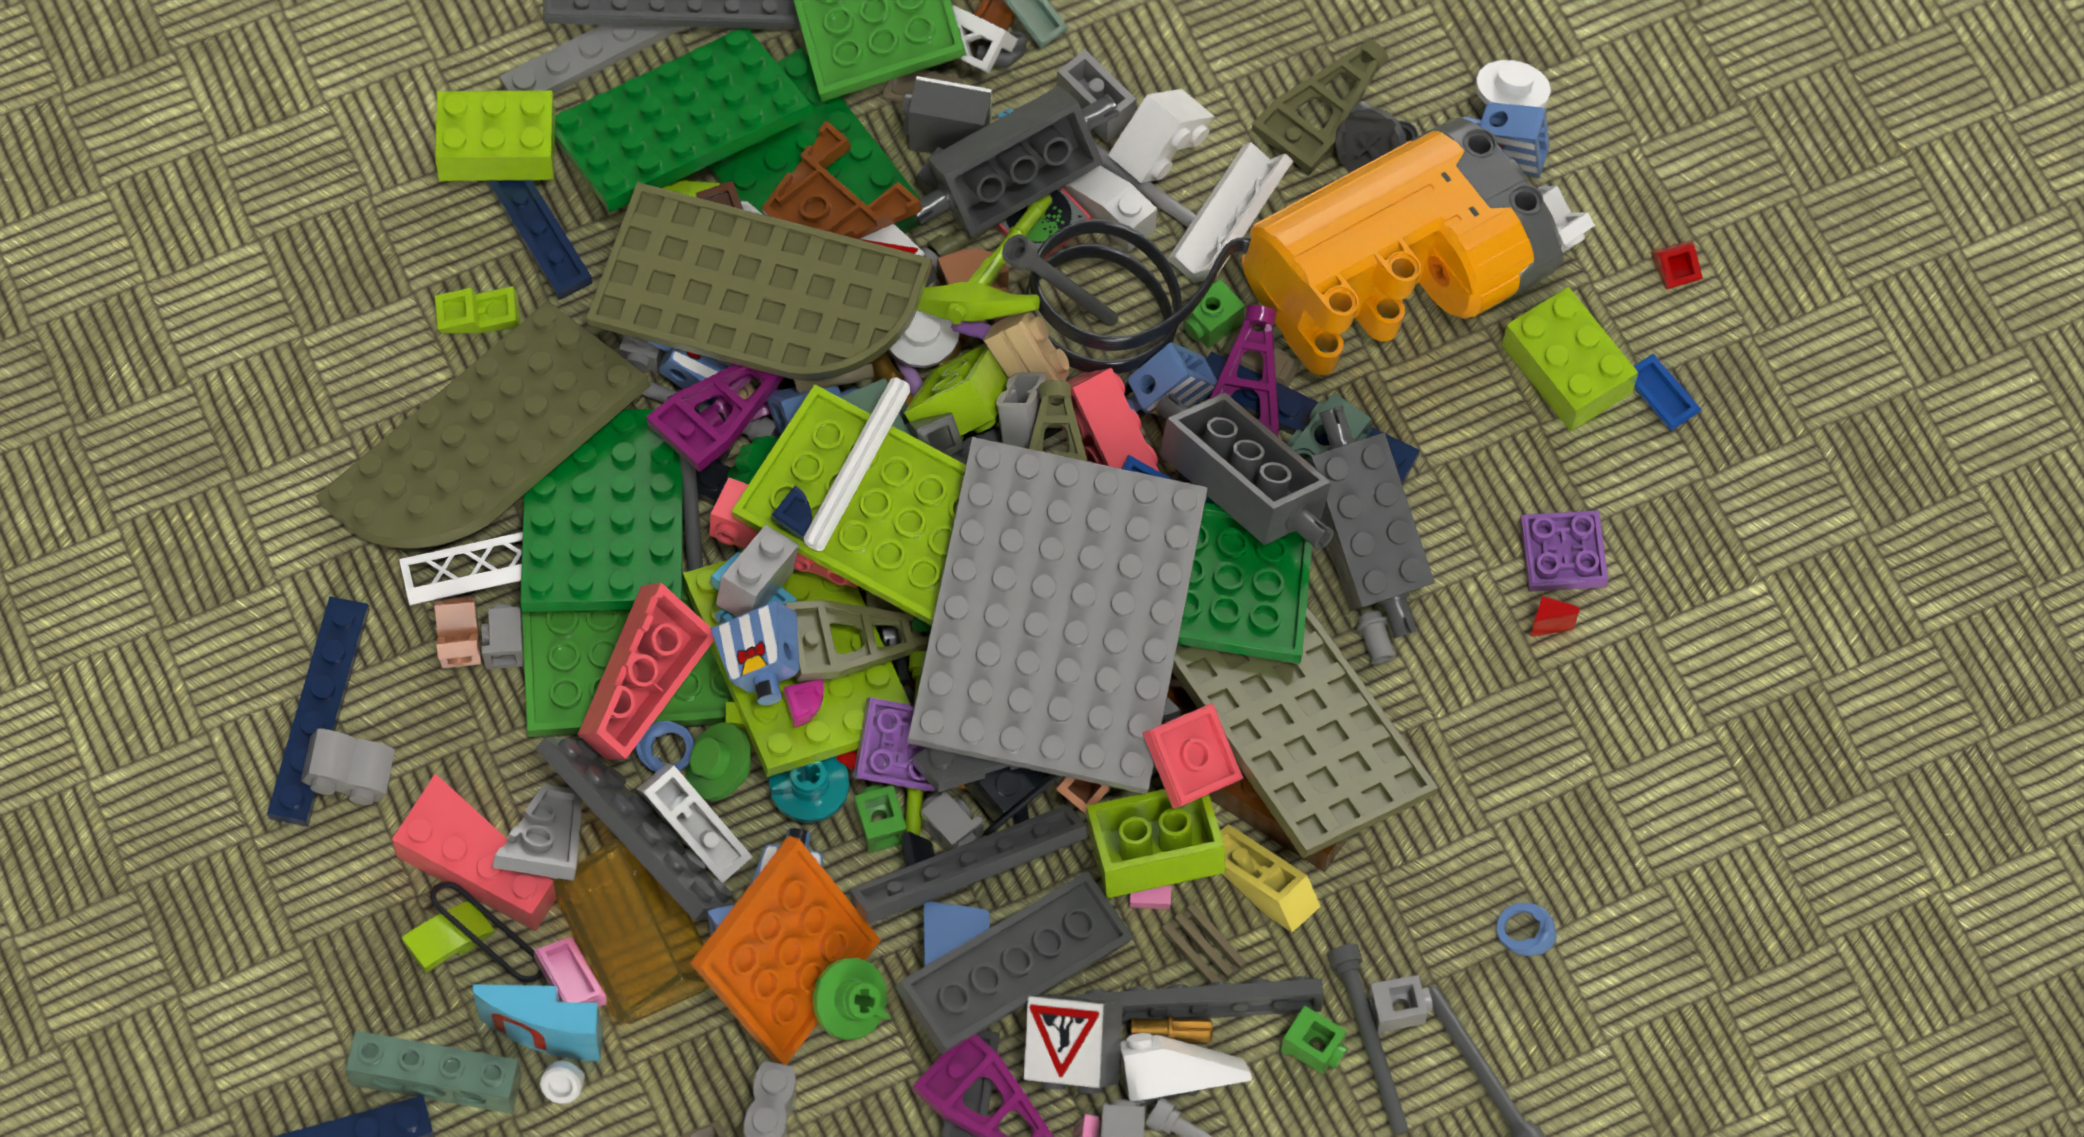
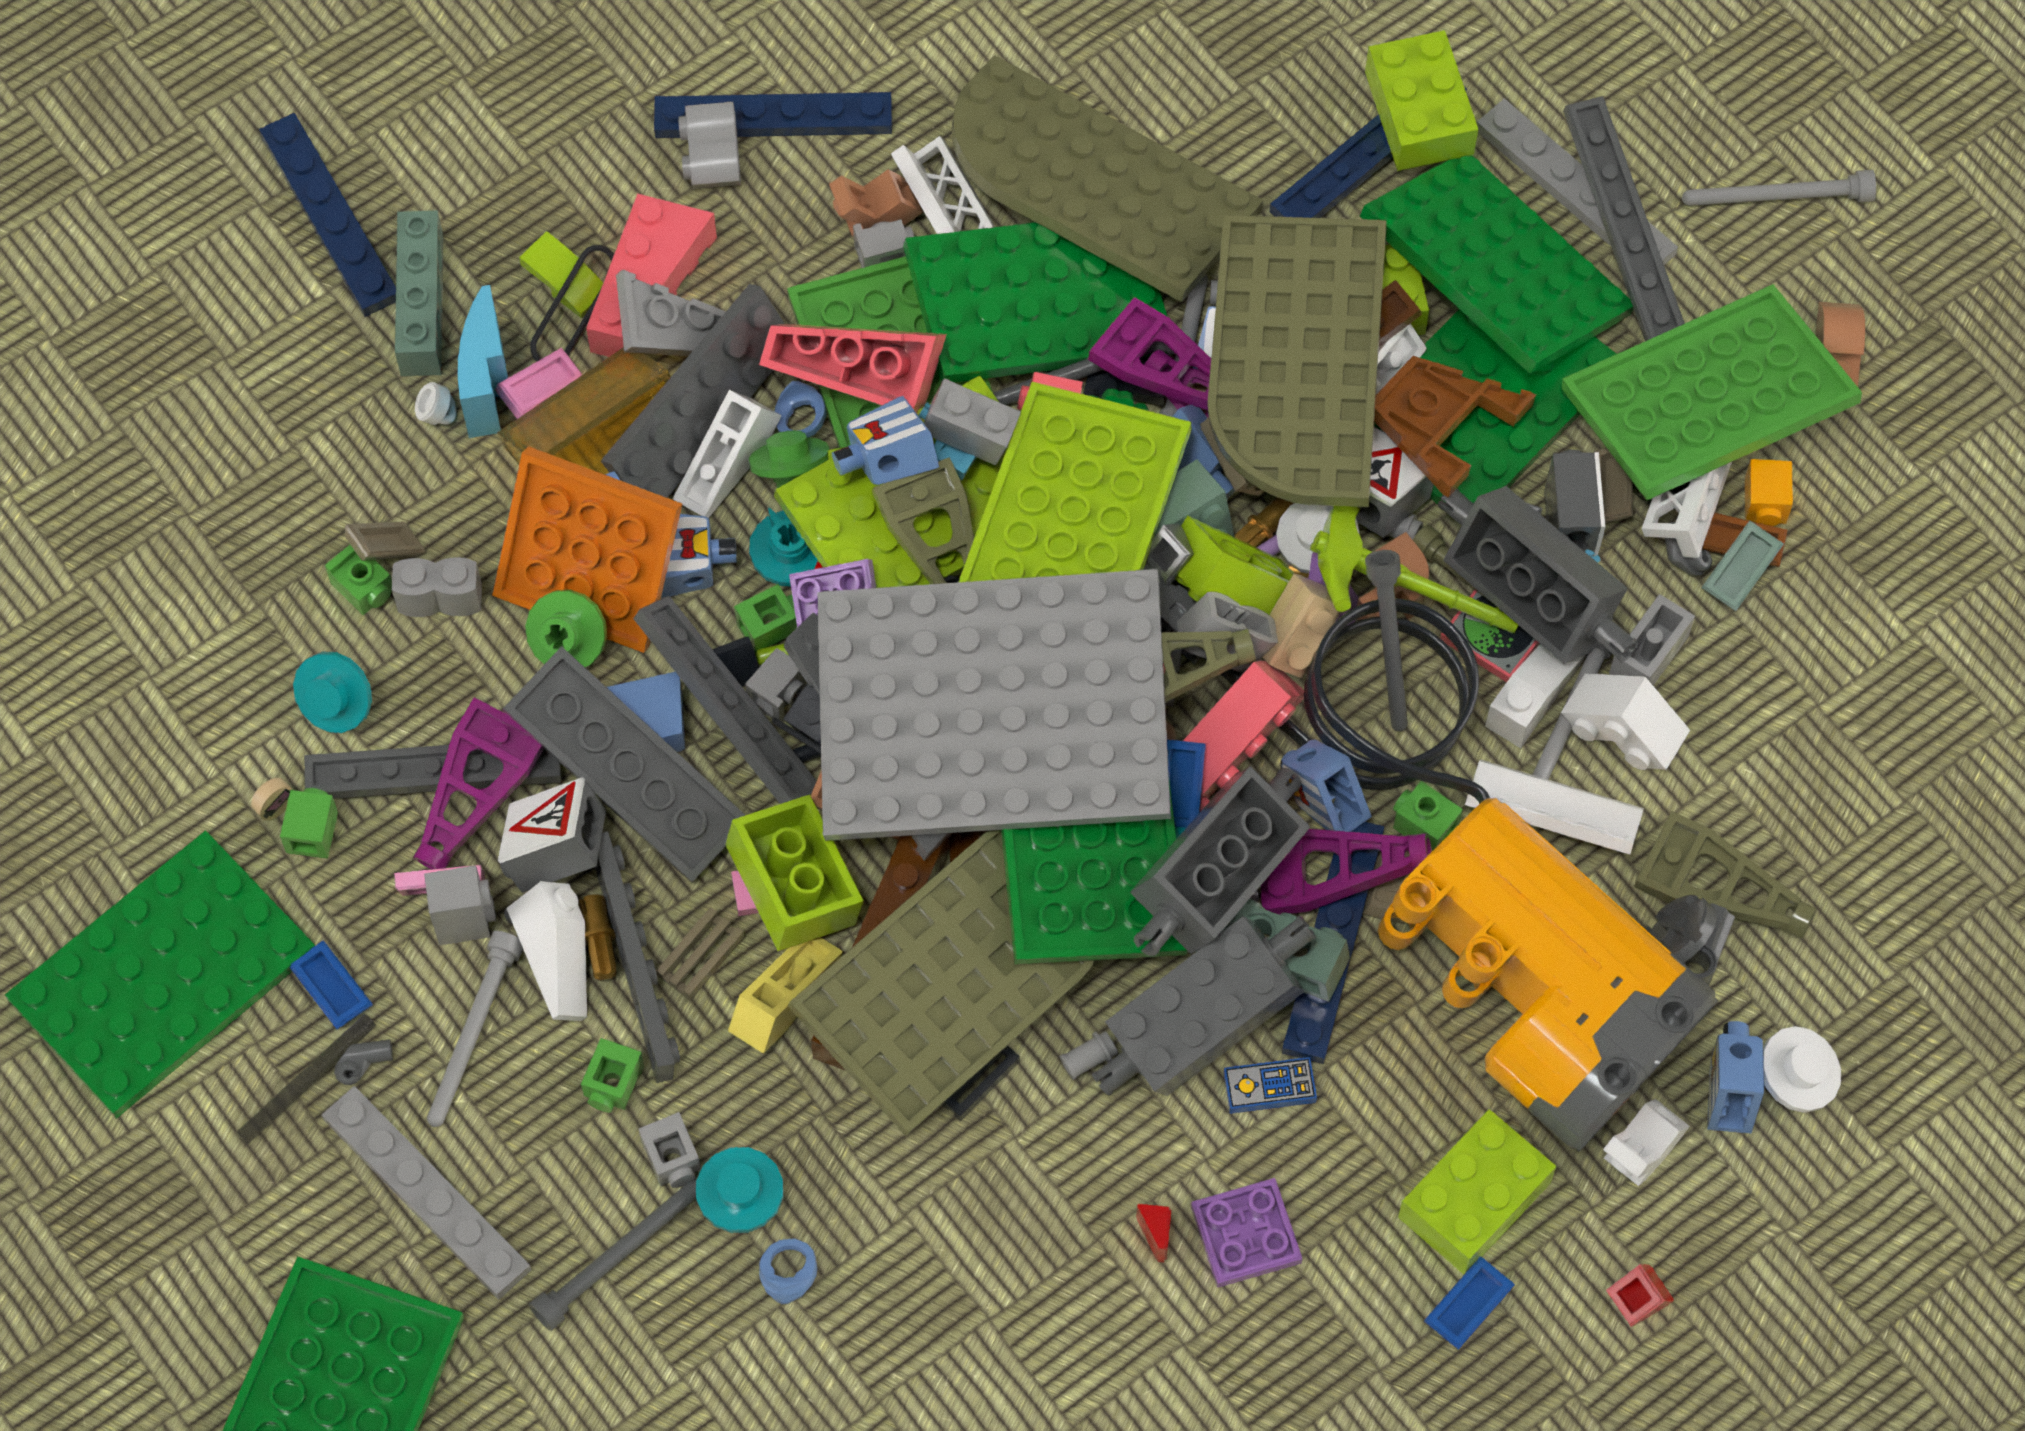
camera: 80 degrees right, 0 degrees up
(477, 313) = (1235, 144): lime slope -> none
(794, 513) = (1039, 436): dark blue tile -> none
(804, 700) = (855, 505): dark pink tile -> none
(856, 464) = (1107, 476): white axle -> none
(1192, 755) = (872, 871): coral tile -> none
(1346, 962) = (705, 1094): dark grey piece -> none
(1433, 499) = (1270, 1085): none -> tile
(1450, 950) = (739, 1189): none -> teal piece

